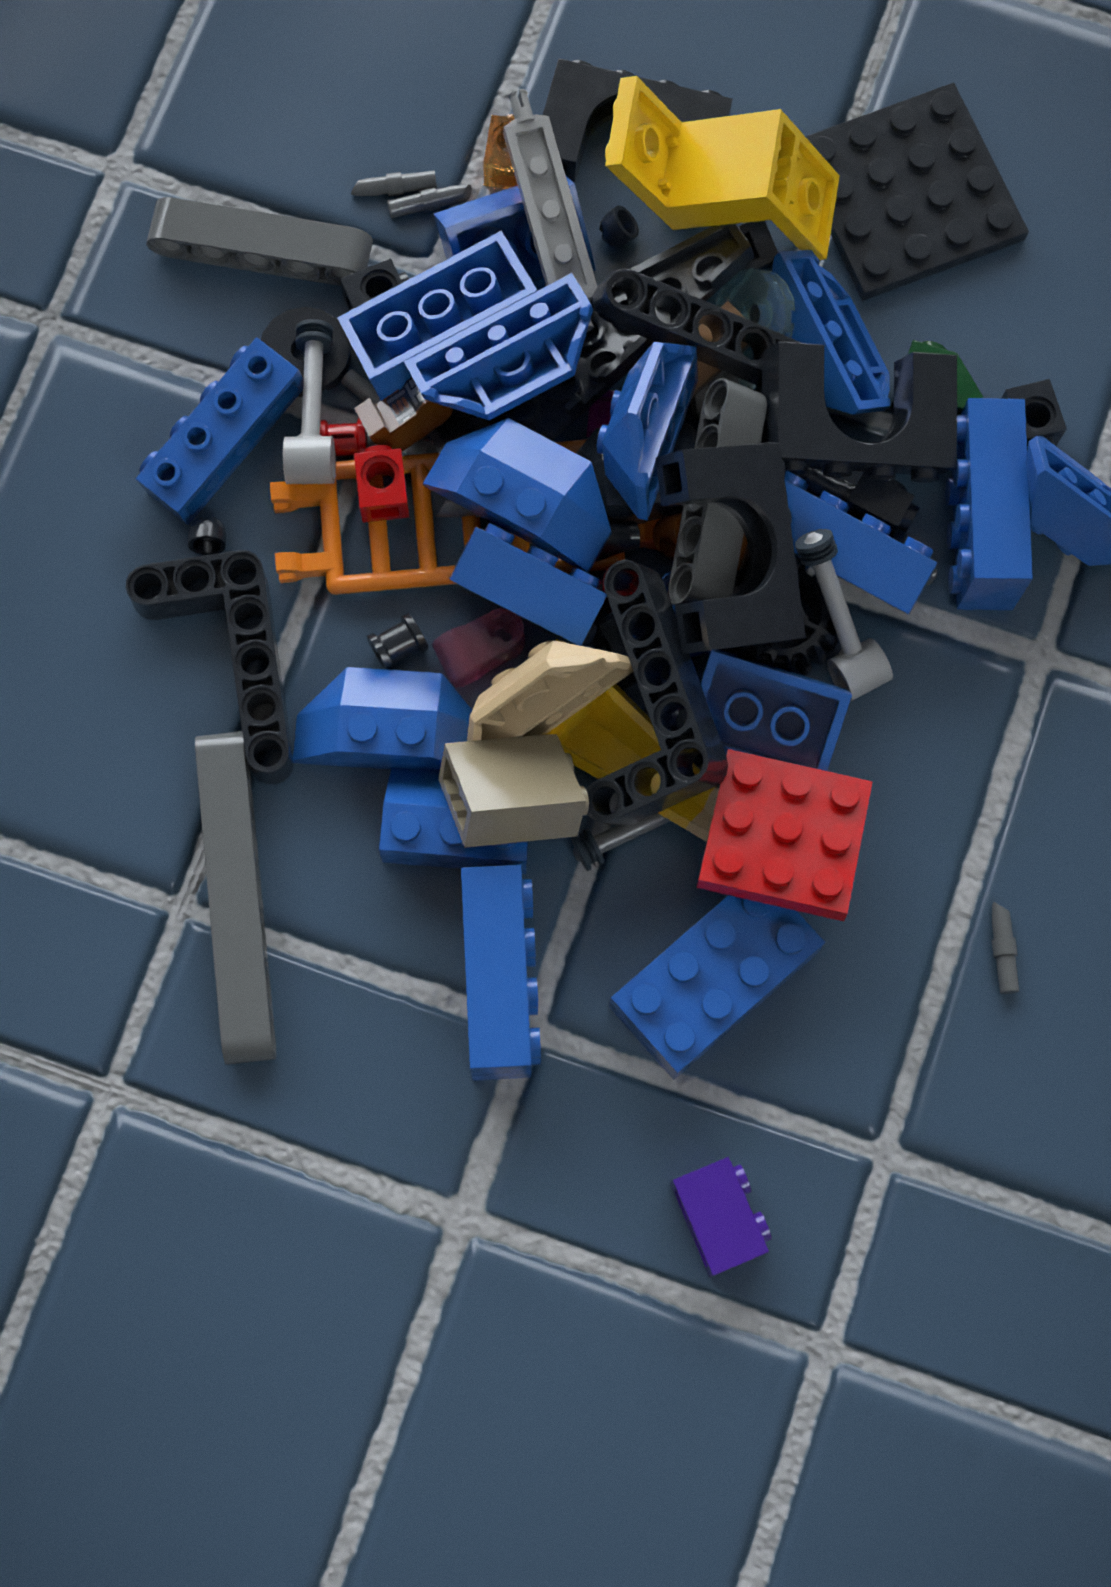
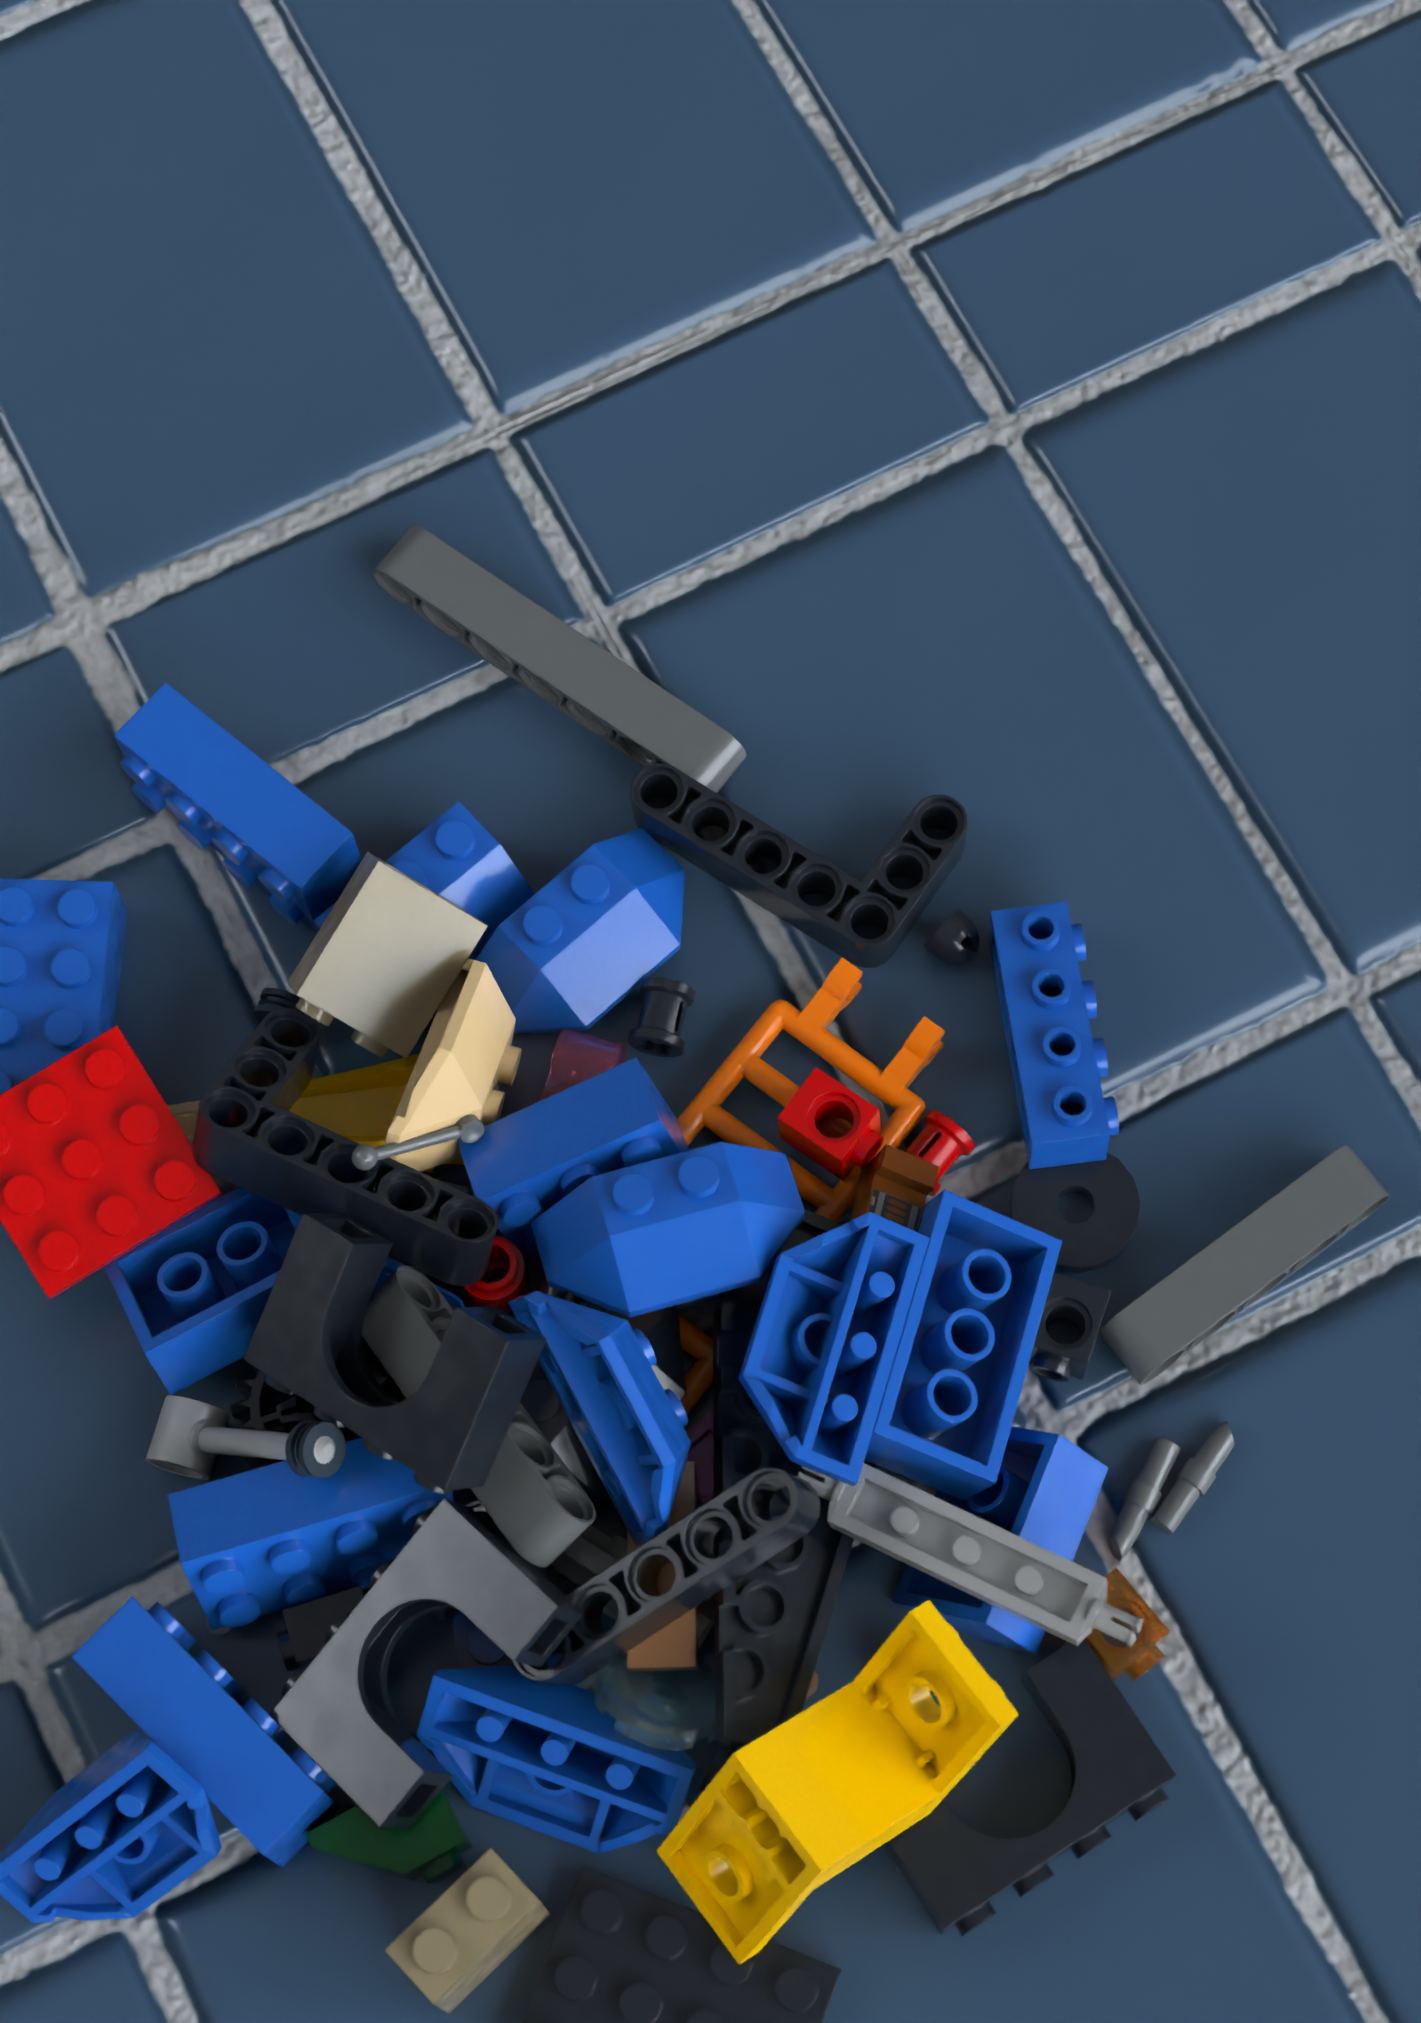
camera: 140 degrees right, 5 degrees down
(309, 455) = (930, 1081): light grey piece -> none
(644, 660) = (467, 1128): none -> dark grey hinge
(953, 293) = (468, 1932): none -> dark tan brick
(1042, 406) = (290, 1907): black brick -> none

